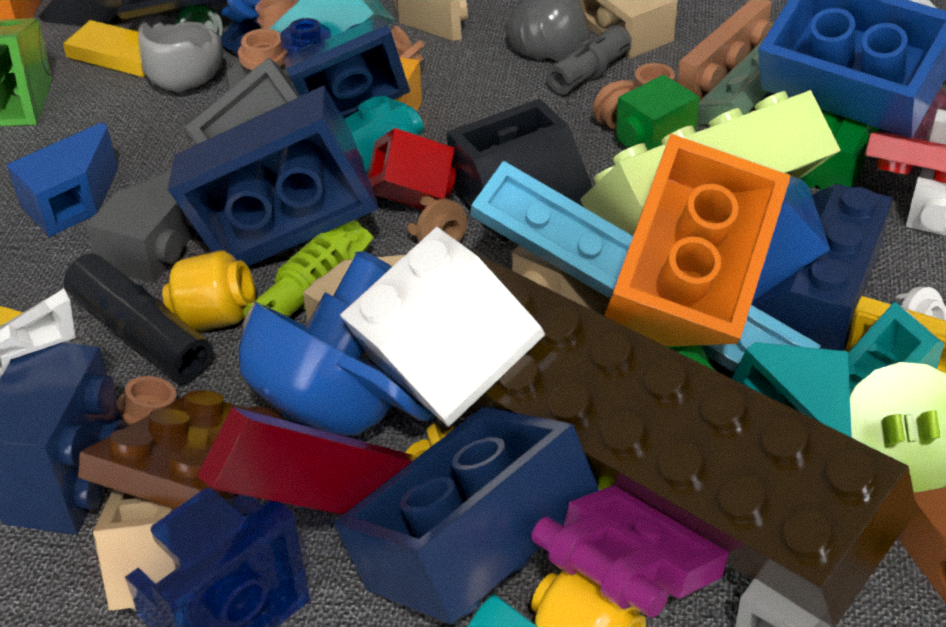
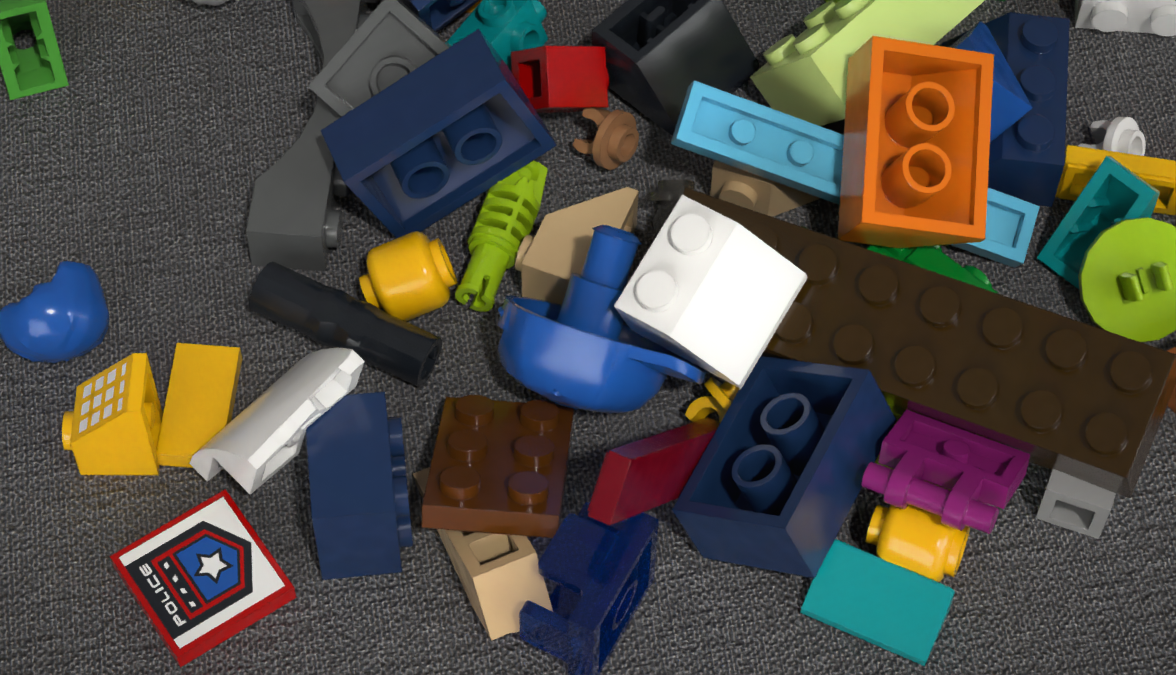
camera: 20 degrees left, 15 degrees up
(65, 179) = (165, 168): blue slope -> none
(143, 396) = (418, 418): nougat plate -> none
(802, 379) = (1040, 267): teal slope -> none

